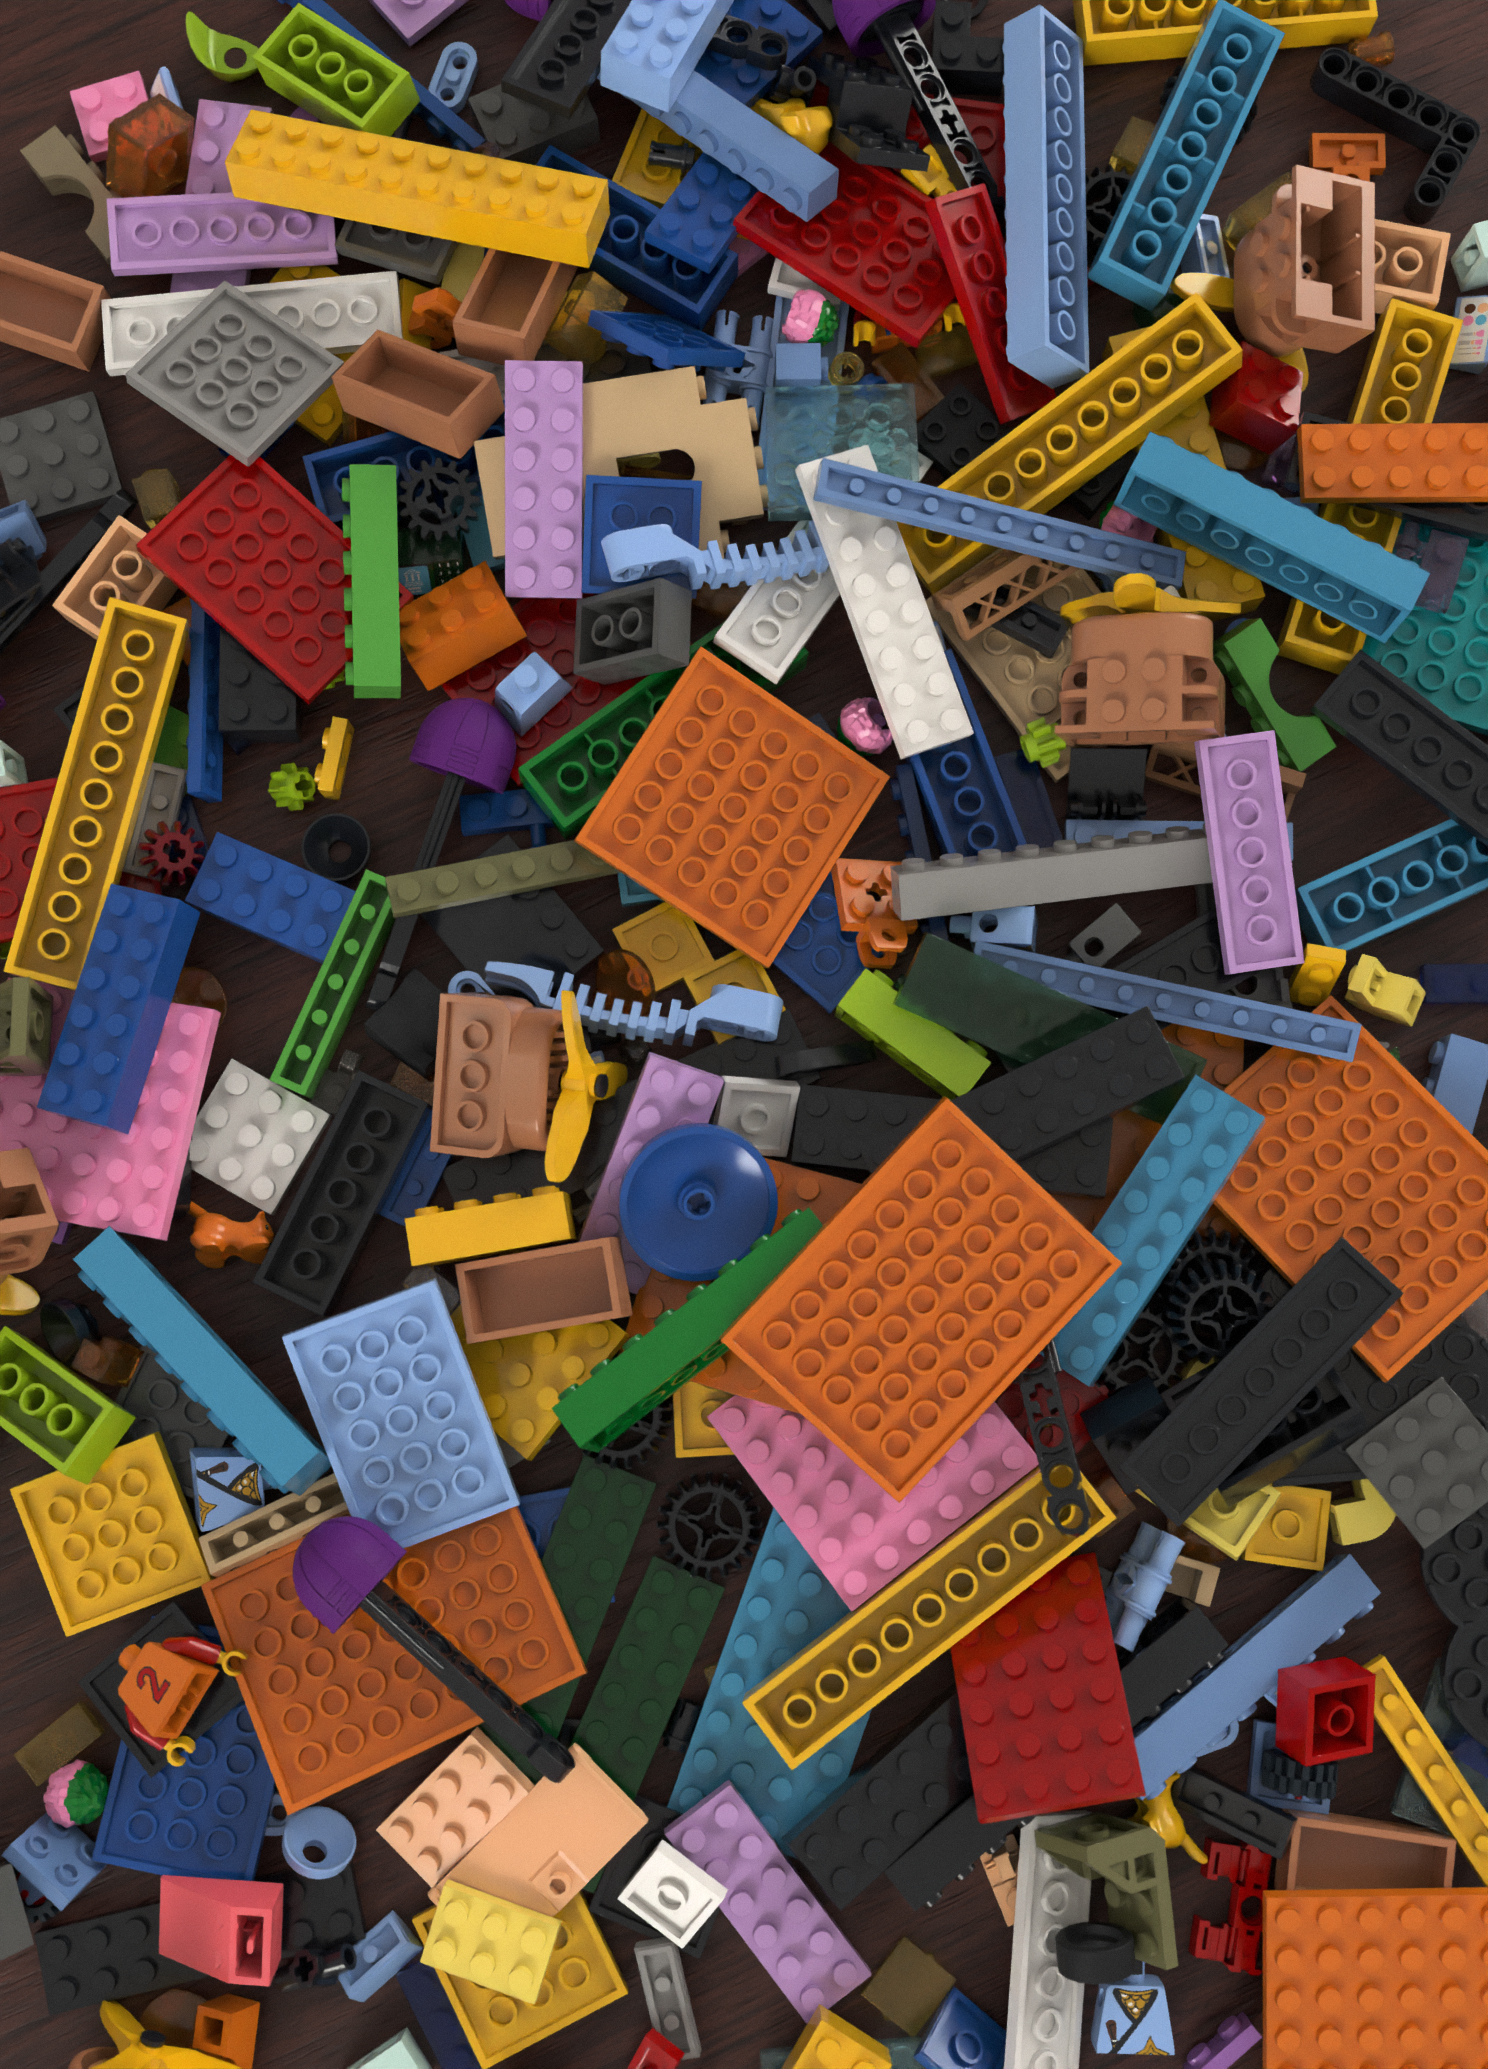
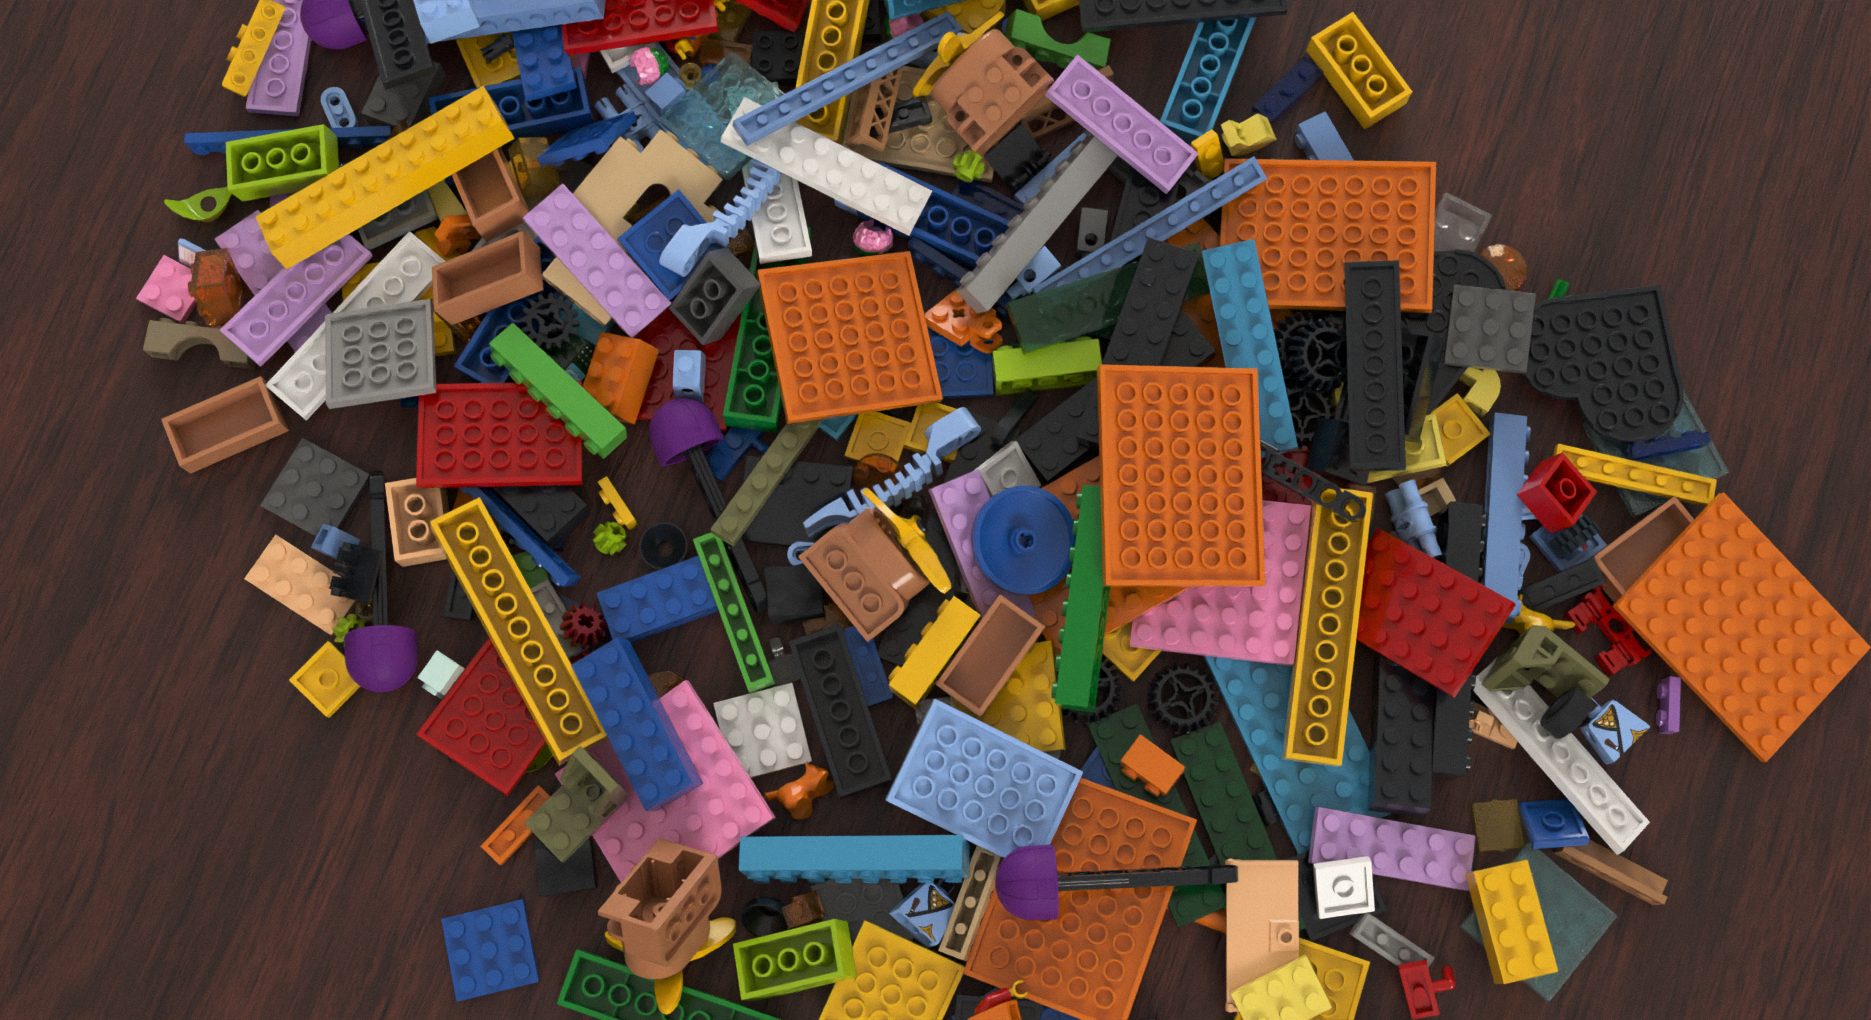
camera: 45 degrees left, 5 degrees down
(156, 494) = (394, 459): clear yellow brick -> none
(455, 1807) = (1197, 955): light nougat plate -> none
(598, 1568) = (1151, 766): none -> orange brick

